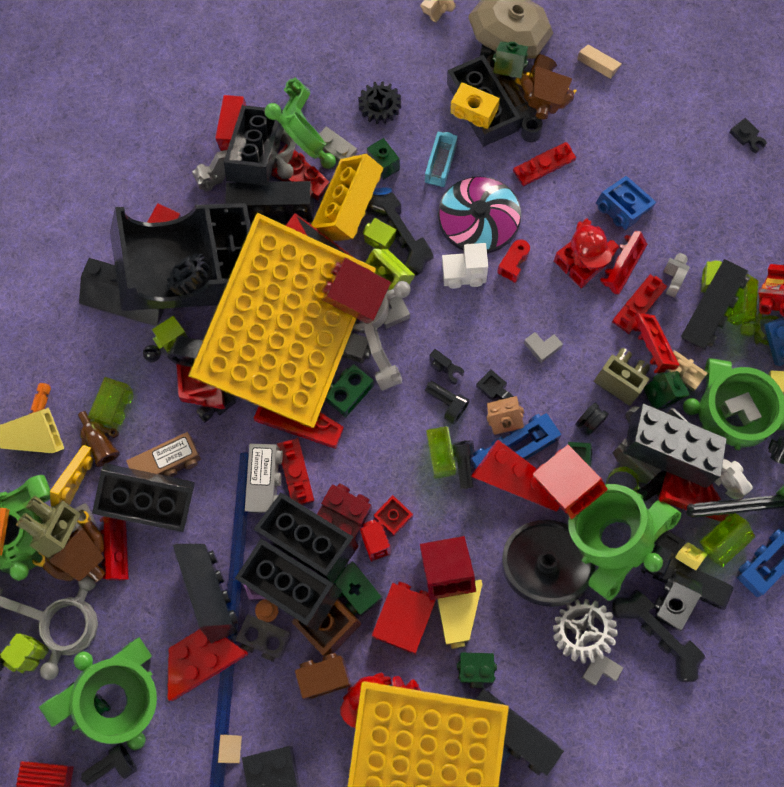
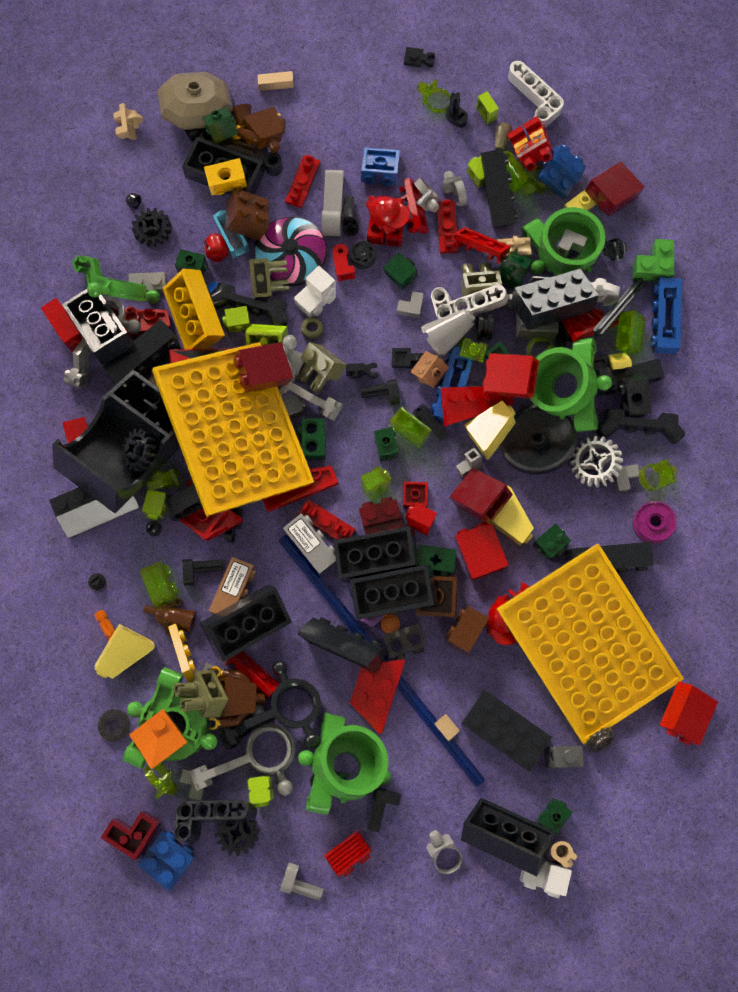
camera: 45 degrees left, 5 degrees up
(46, 585) = (232, 735): none -> black piece
(67, 358) = (96, 581): none -> black piece
(149, 411) = (191, 567): none -> black piece
(197, 320) = (164, 479): none -> clear neon green piece
(365, 474) = (375, 482): none -> clear neon green brick
(387, 67) = (131, 198): none -> black hinge
(404, 456) = (386, 450): none -> dark green head
(416, 161) = (215, 247): none -> red head
(416, 332) = (324, 362): none -> olive brick
(429, 215) = (260, 277): none -> olive brick
(434, 302) = (312, 335): none -> olive piece
(467, 152) = (247, 214): none -> reddish brown brick
(469, 530) = (472, 460): none -> light grey piece
(514, 515) = (491, 428): none -> slope
(538, 214) = (332, 203): none -> light grey beam
(539, 268) = (362, 255): none -> black wheel
(551, 394) = (448, 330): none -> light grey cone
(557, 224) = (349, 216): none -> black piece
(559, 430) = (472, 349): none -> clear neon green piece
(560, 308) = (401, 270): none -> dark green head
(598, 385) = (471, 301): none -> white beam
(605, 734) = (666, 522): none -> magenta wheel
(645, 699) = (665, 471): none -> clear neon green piece
(646, 263) = (429, 198): none -> light grey piece
(730, 169) = (427, 90): none -> clear neon green piece
(739, 206) = (454, 111): none -> black piece
(761, 265) = (501, 136): none -> dark tan cone
(772, 226) = (487, 107): none -> lime piece

